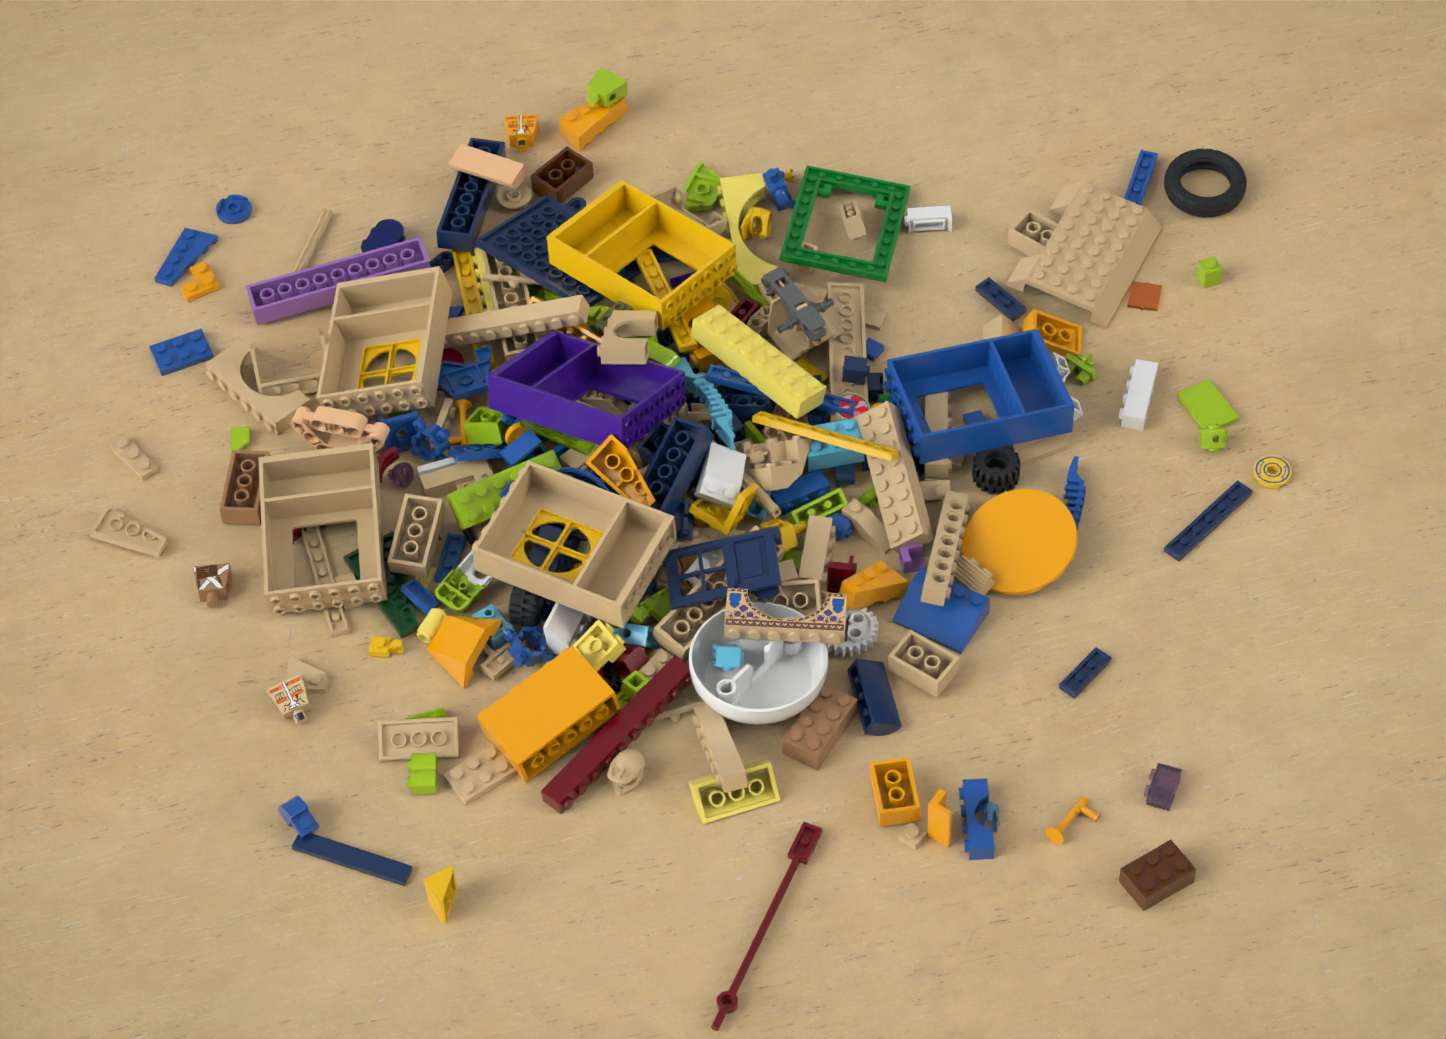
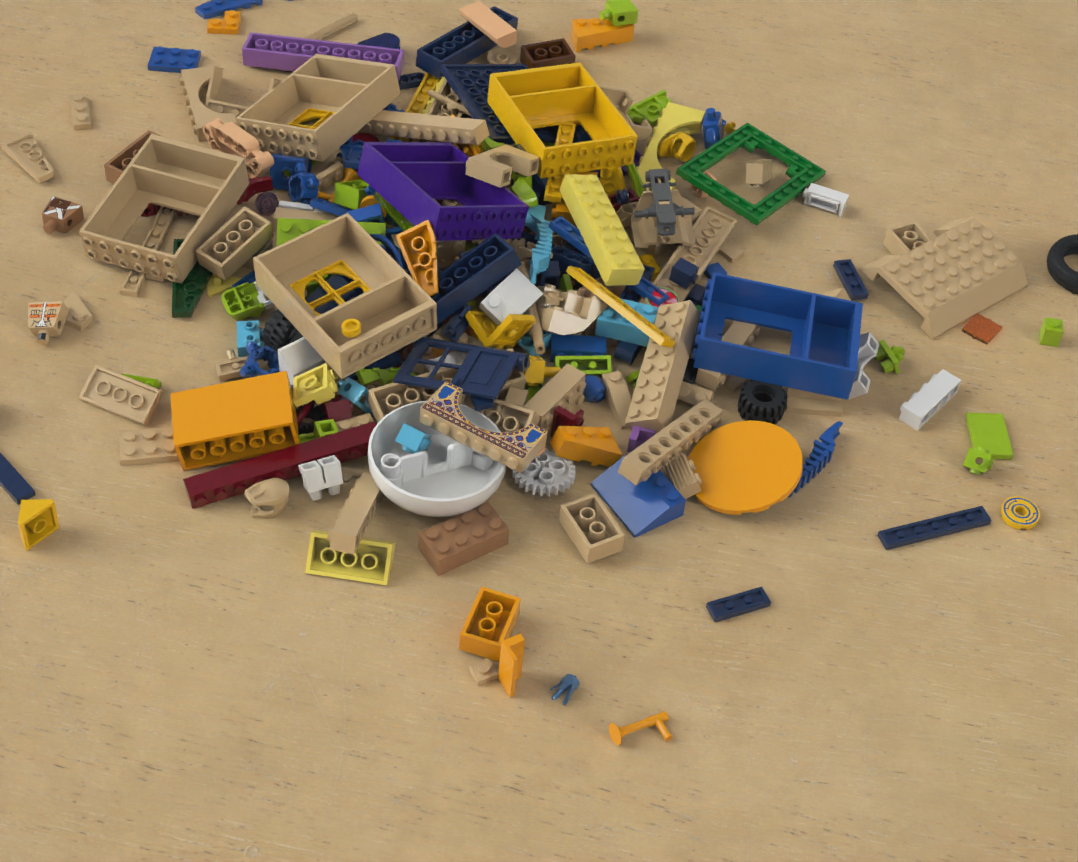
camera: 20 degrees right, 5 degrees down
(240, 437) = (169, 129): lime tile -> none
(383, 646) = (152, 316): yellow plate -> none
(420, 596) = (209, 292): blue tile -> none
(423, 773) = (103, 423): lime brick -> none
(430, 625) = (202, 317): light yellow head -> none
(460, 644) = (211, 338): light orange wedge -> none
(522, 130) = (540, 20): light orange torso -> none
(615, 578) = (351, 328): none -> yellow tile
(661, 728) = (322, 475): none -> white hips
(746, 311) = (622, 196): none -> dark blue bush
(799, 853) = (369, 636): dark red bar -> none
(874, 697) = (528, 537): dark blue brick -> none
(979, 839) = (541, 704): blue arch -> none
(1058, 334) = (882, 322): light orange slope -> none
(1141, 177) = (1032, 239): blue plate -> none
(1157, 875) = (691, 819): reddish brown brick -> none
(1163, 786) = (749, 738): clear purple brick -> none

